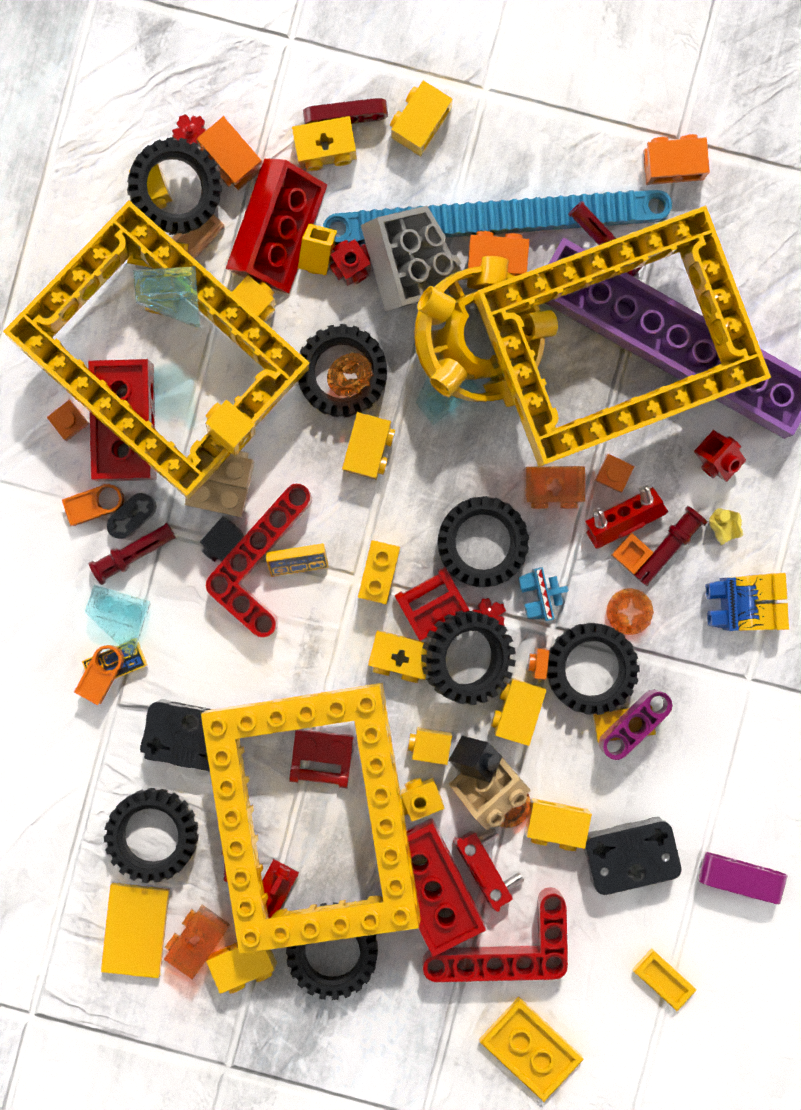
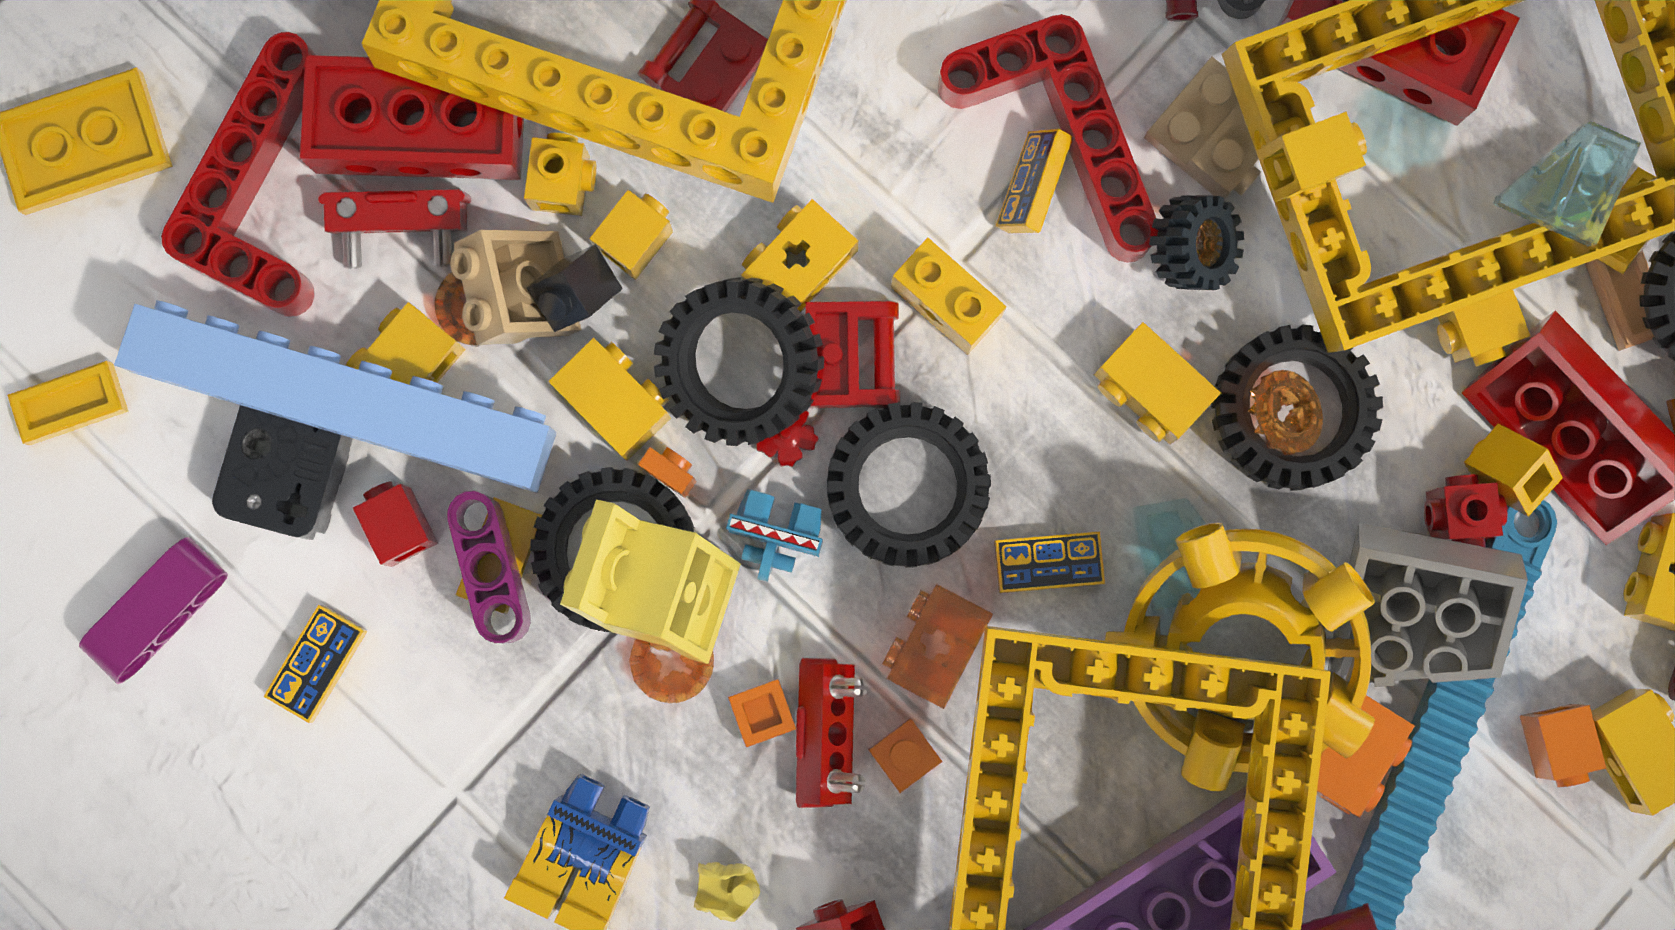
camera: 115 degrees right, 5 degrees down
(221, 539) = (1130, 82): black brick -> none
(281, 453) = (1197, 242): none -> black bush
(438, 158) = (1563, 744): none -> orange brick
(482, 452) = (1049, 562): none -> tile
(595, 844) = (337, 397): none -> light blue brick
(603, 640) = (650, 582): none -> light yellow bracket
(637, 783) = (394, 523): none -> red brick
(678, 535) = (750, 804): dark red pin -> none
(725, 784) = (315, 663): none -> tile

